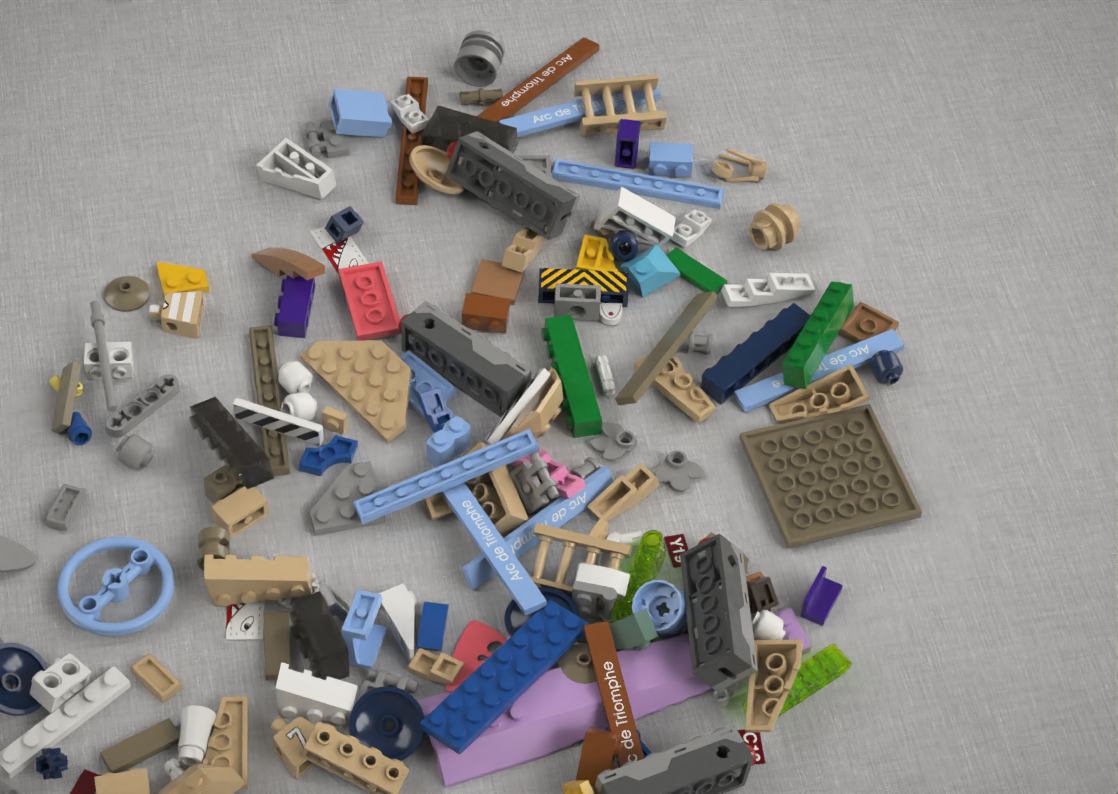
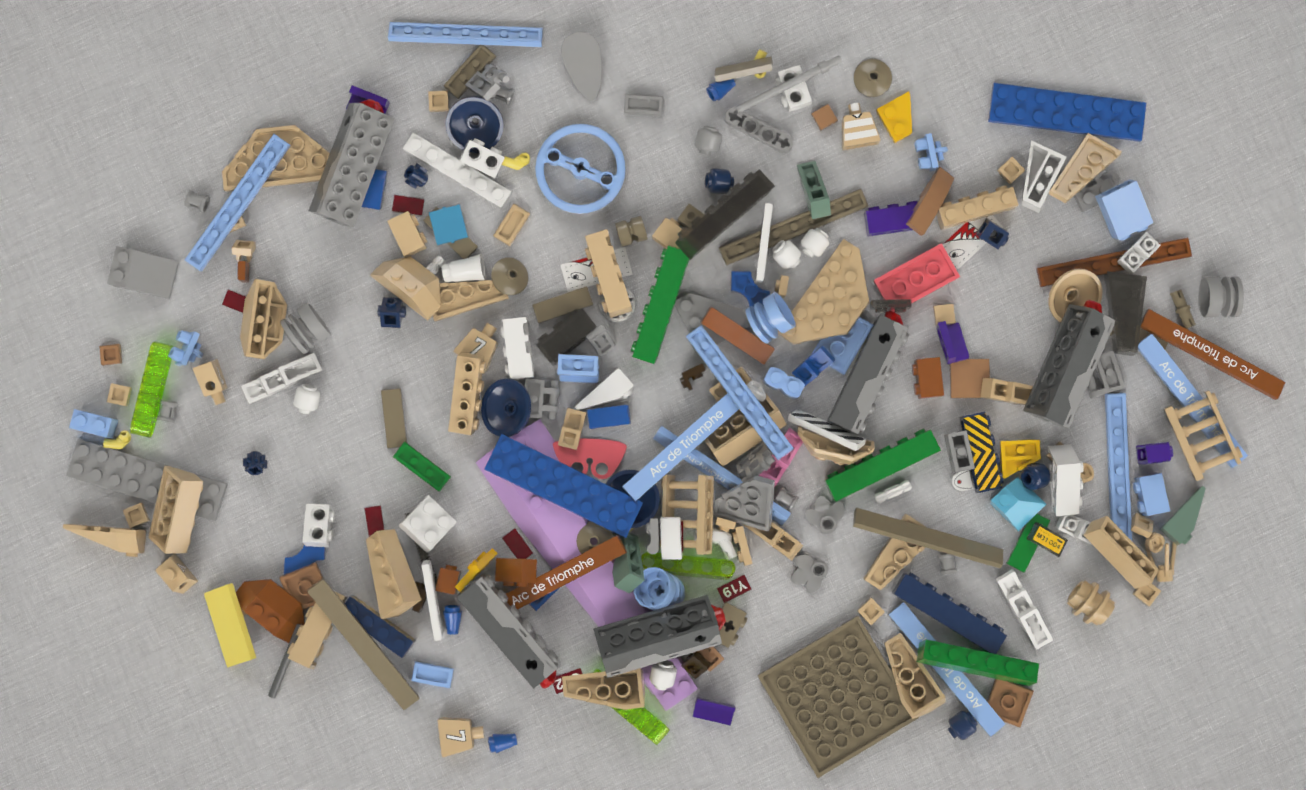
camera: 80 degrees right, 35 degrees up
(80, 648) = (518, 162): none -> light yellow arm
(129, 742) = (448, 224): none -> dark azure piece
(153, 343) = (824, 117): none -> medium nougat tile
(187, 452) = (719, 181): none -> dark blue head
(220, 690) = (504, 282): none -> dark tan dish
(232, 257) = (926, 143): none -> light blue hips
(235, 142) = (1067, 112): none -> blue plate
(235, 363) = (814, 190): none -> sand green slope
(280, 196) = (1011, 170): none -> tan plate
(299, 129) = (1086, 163): none -> tan wing
(310, 224) = (972, 209): none -> tan brick
(315, 534) = (661, 305): none -> green brick
(368, 429) = (770, 317): none -> light blue wheel
(377, 472) = (737, 335): none -> dark orange tile
(391, 328) = (882, 306): none -> clear smoke plate
(410, 533) = (694, 373): none -> dark brown bracket
(418, 288) = (944, 313): none -> tan tile
(452, 286) = (952, 342): none -> dark purple panel
(563, 764) = (517, 545): none -> dark red sticker
(580, 492) = (748, 503): none -> light grey plate
(630, 522) = (743, 554): none -> tan plate
(695, 252) = (1047, 539): none -> tile
(702, 174) = (1142, 525): none -> tan plate
(706, 139) = (1183, 522): none -> sand green slope
(726, 190) = (1121, 552): none -> tan brick
(737, 422) = (870, 611): none -> tan plate
(774, 187) = (1147, 594): none -> tan plate

